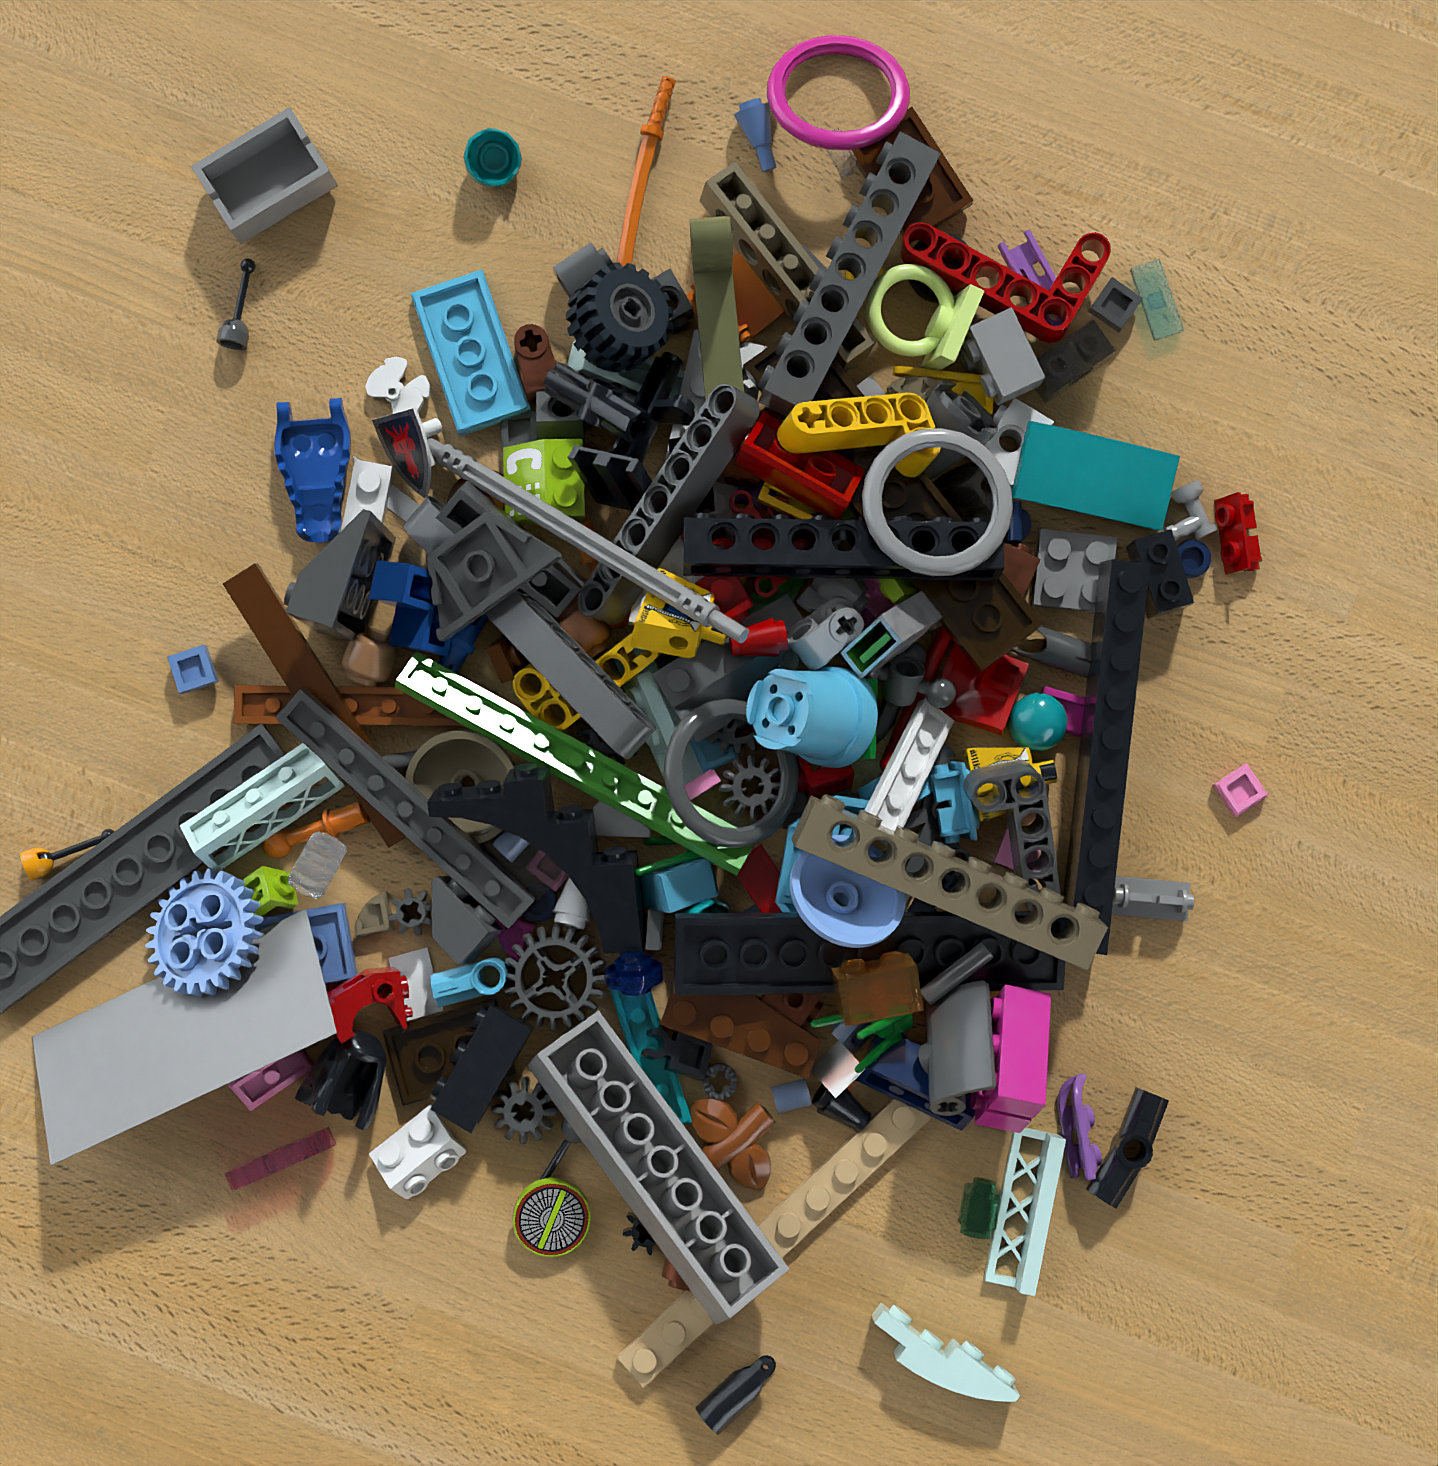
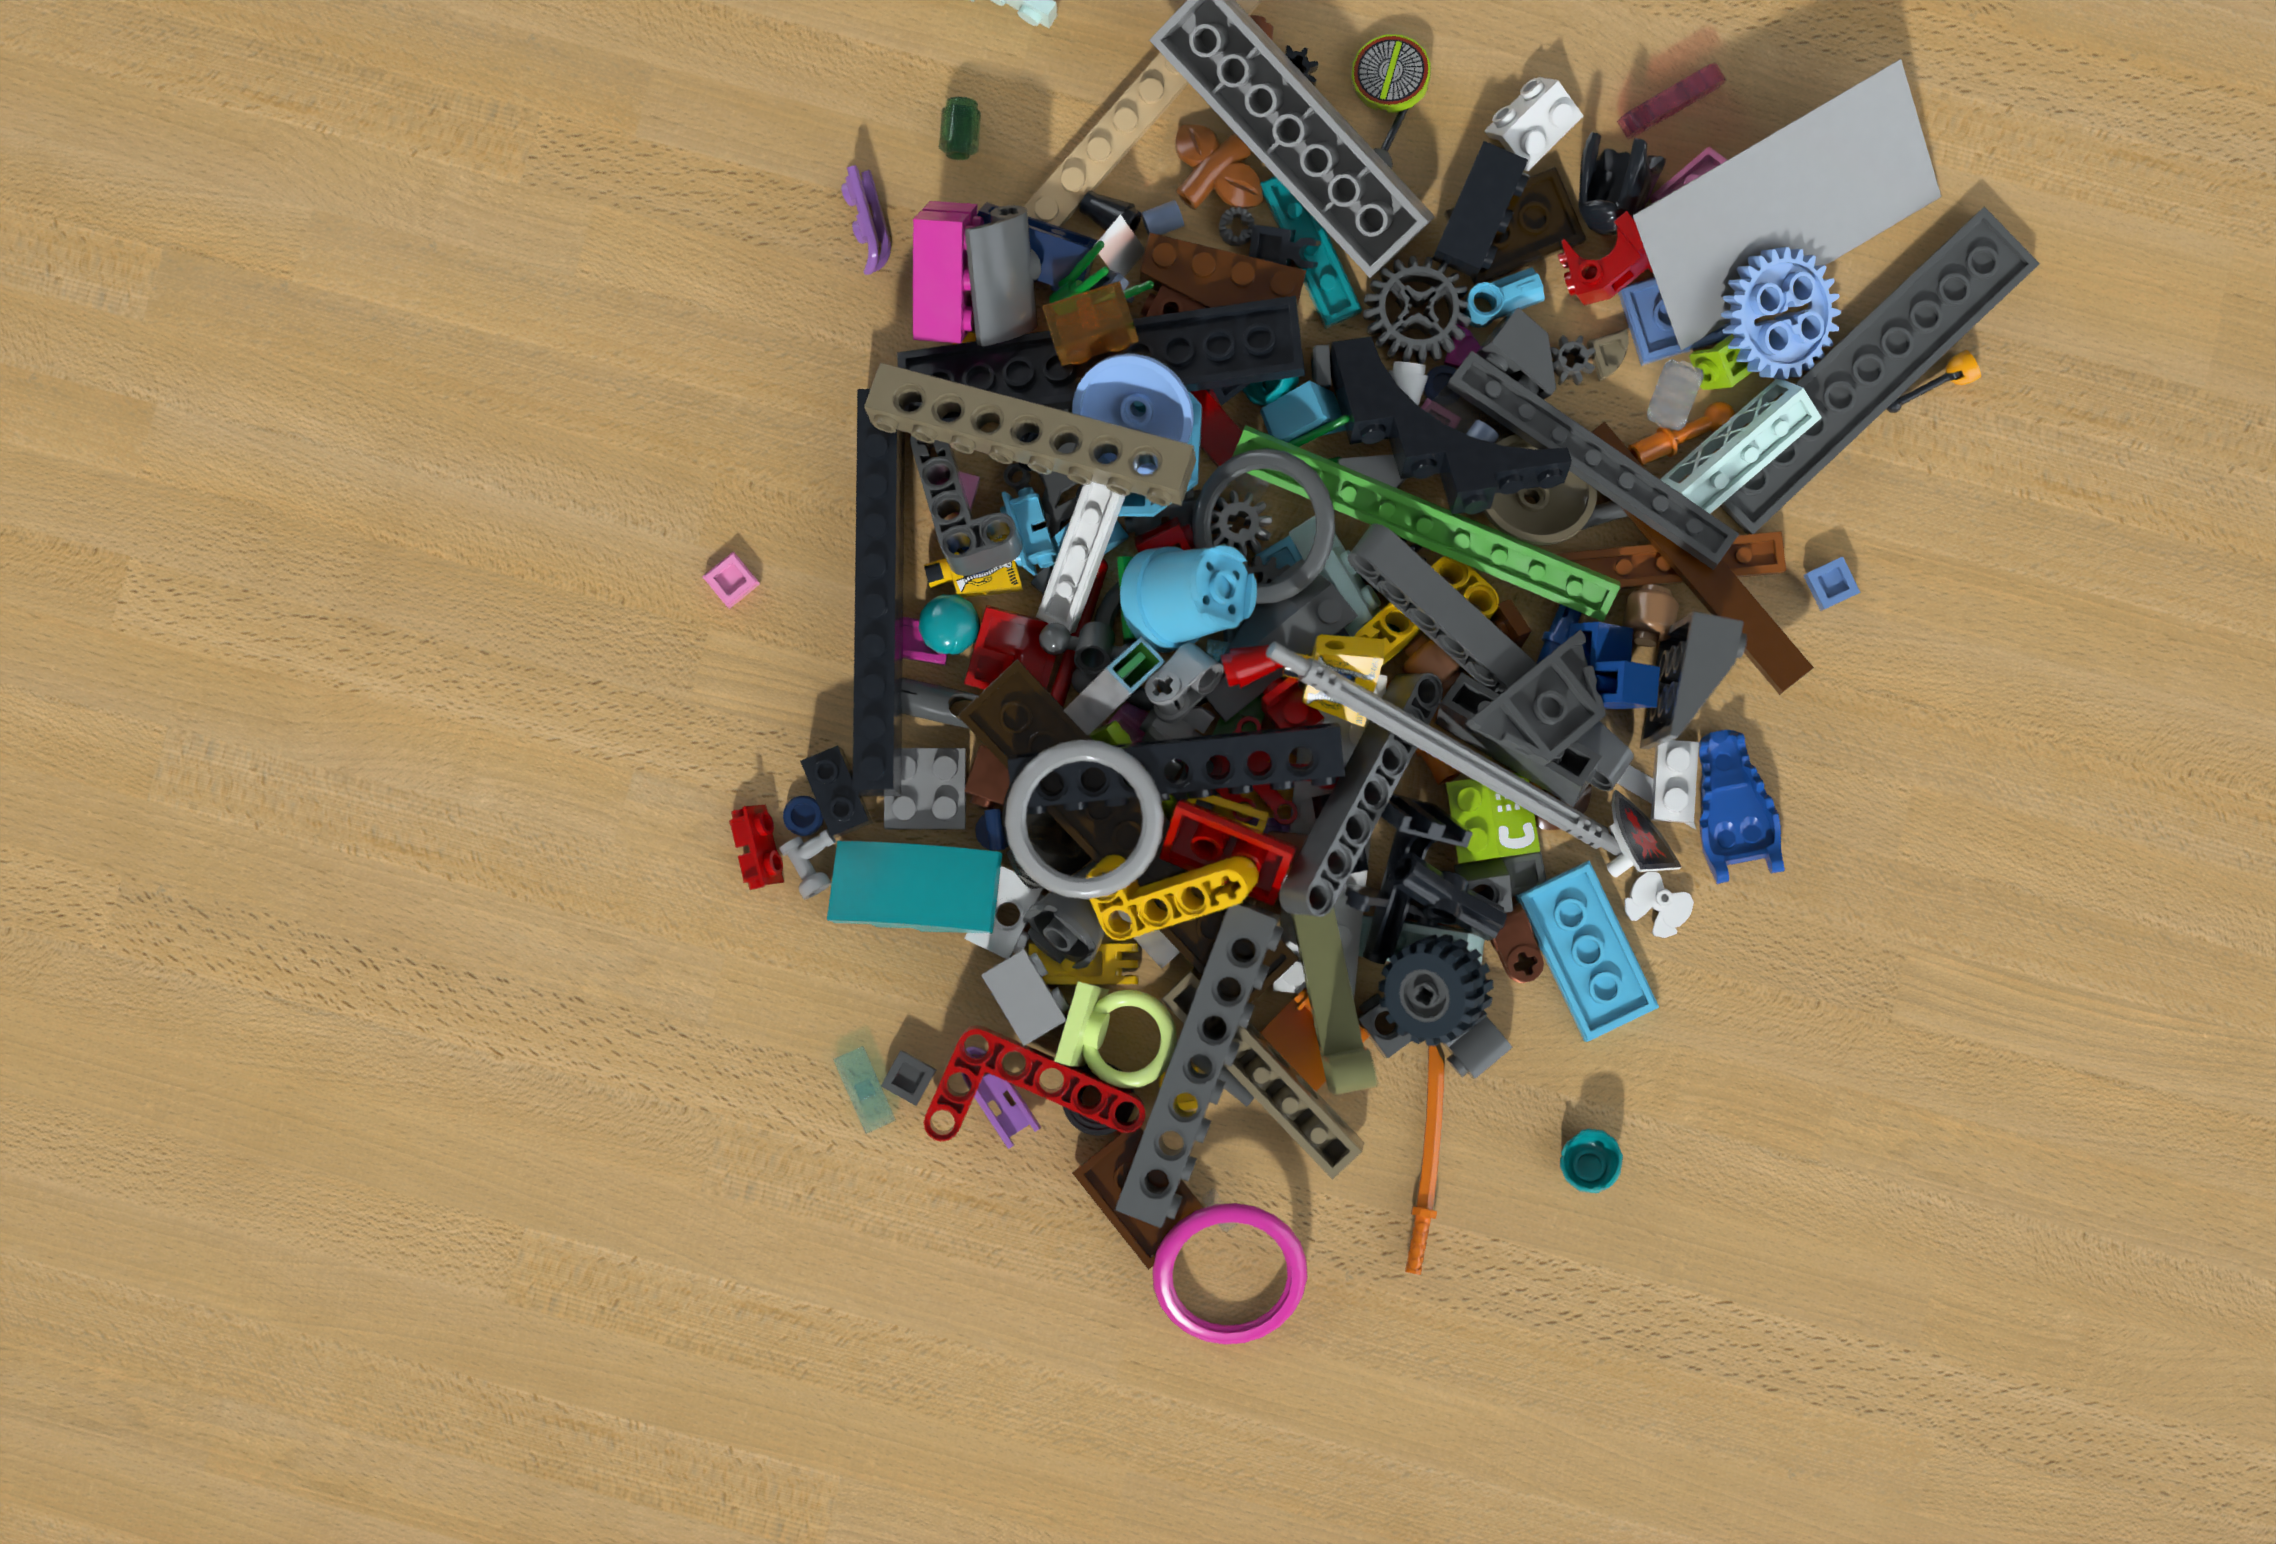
camera: 170 degrees right, 0 degrees up
(233, 332) = (1838, 945): hinge -> none
(264, 175) = (1831, 1112): light grey piece -> none
(417, 969) = (1558, 303): white sticker -> none
(529, 1123) = (1443, 184): dark grey gear -> none
(634, 974) = (1337, 319): clear blue plate -> none
(702, 784) = (1290, 520): bright pink tile -> none
(756, 125) = (1311, 1229): medium blue cone -> none
(913, 384) = (1114, 957): dark tan tile -> none
(956, 973) = (1010, 351): dark grey piece -> none
(1039, 1213) = (899, 131): light aqua fence -> none
(1073, 360) = (952, 1008): clear smoke brick -> none
(1140, 1123) = (804, 226): black piece -> none
(1152, 898) = (814, 458): light grey hinge -> none

